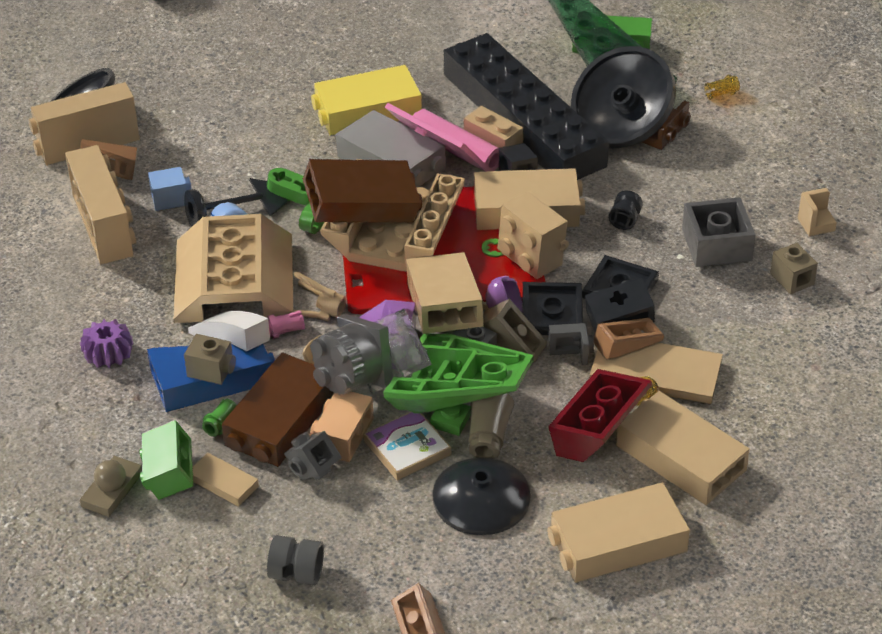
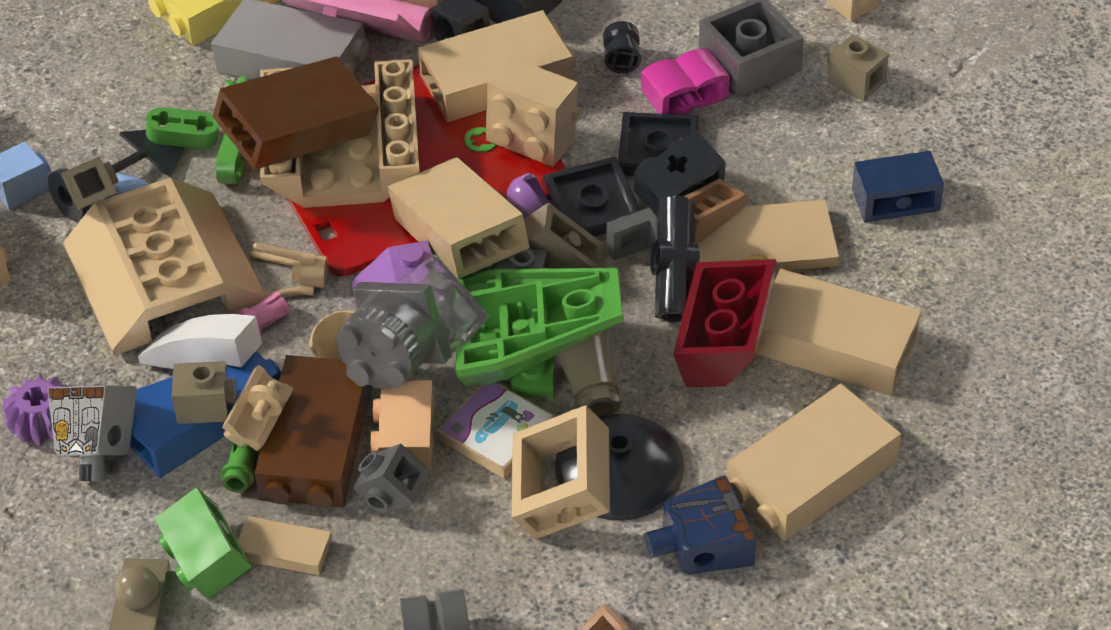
camera: 20 degrees left, 5 degrees up
(131, 361) = (92, 424): none -> light grey torso
(203, 201) = (90, 182): none -> dark tan brick
(240, 380) = (256, 410): none -> tan hips
(406, 499) = (585, 497): none -> tan window
(515, 555) = (704, 530): none -> dark blue torso
(585, 357) = (673, 257): none -> black piece
(659, 246) = (685, 83): none -> dark pink brick
(781, 359) = (897, 186): none -> dark blue brick

